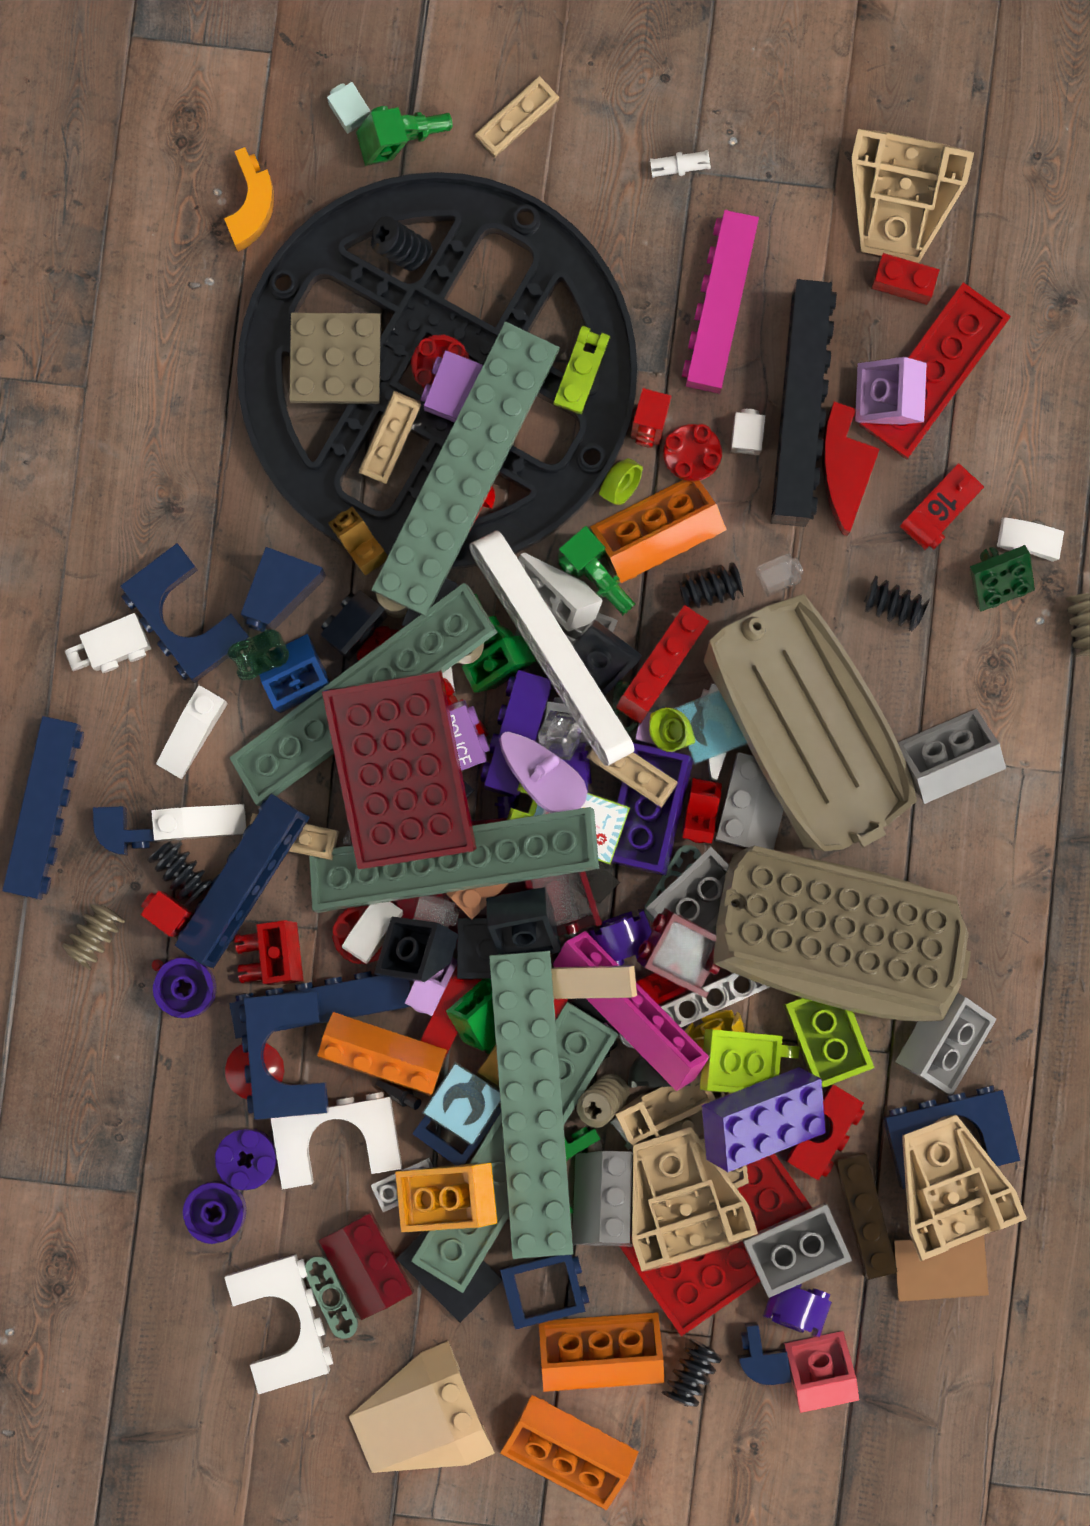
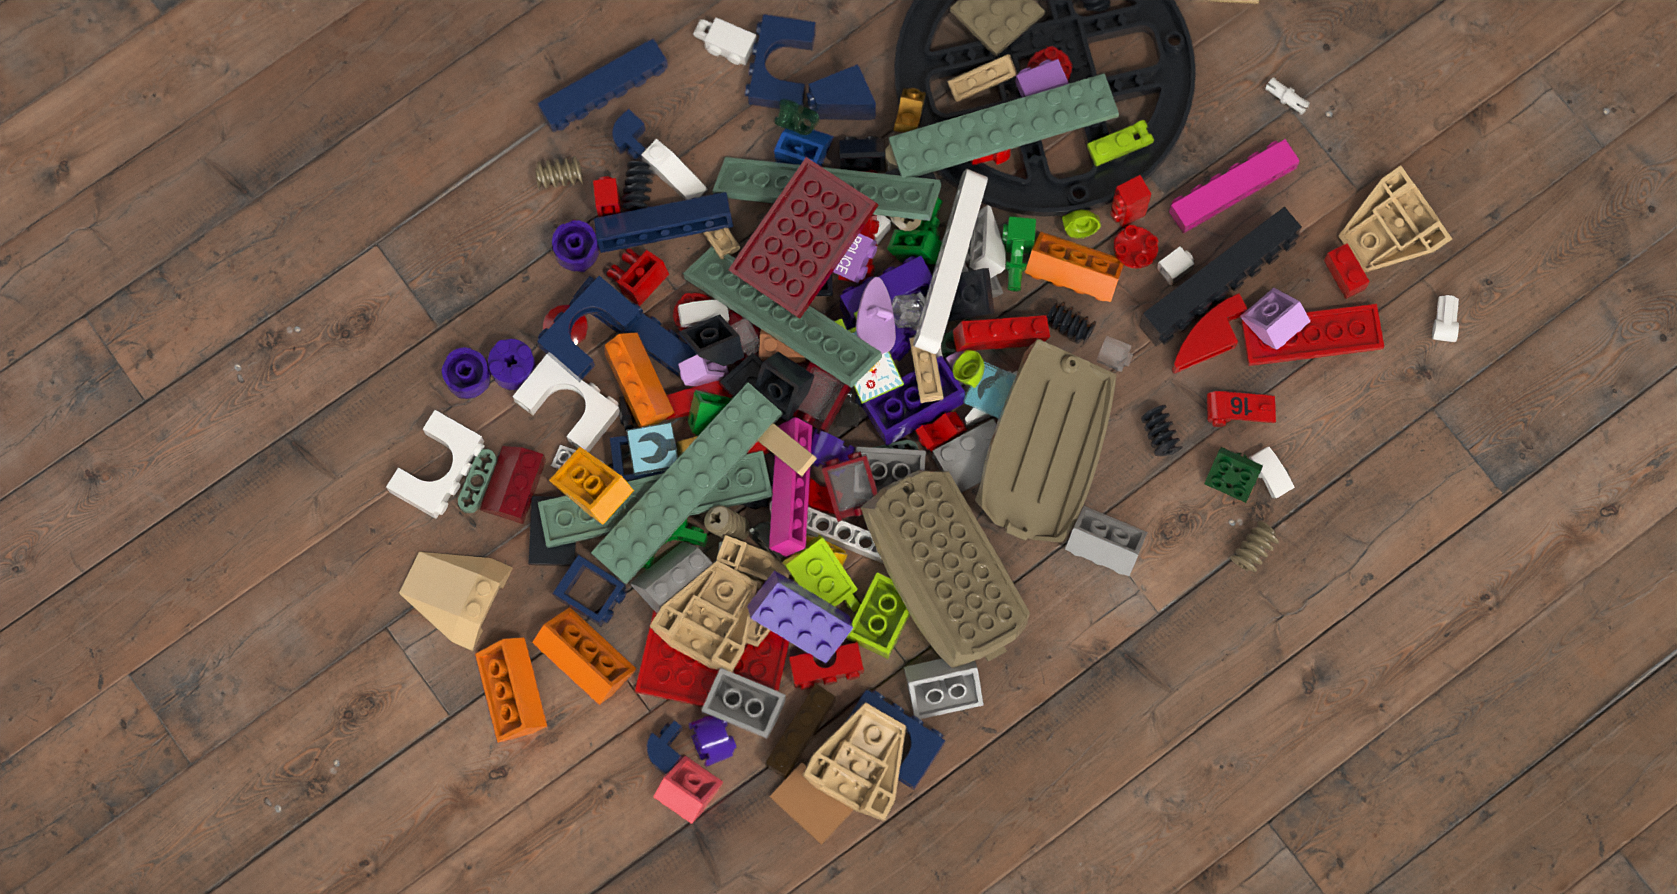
camera: 50 degrees right, 10 degrees down
(191, 731) = (721, 124): white slope -> none
(693, 1374) = (619, 717): black piece -> none
(1043, 239) = (1446, 325): none -> white piece

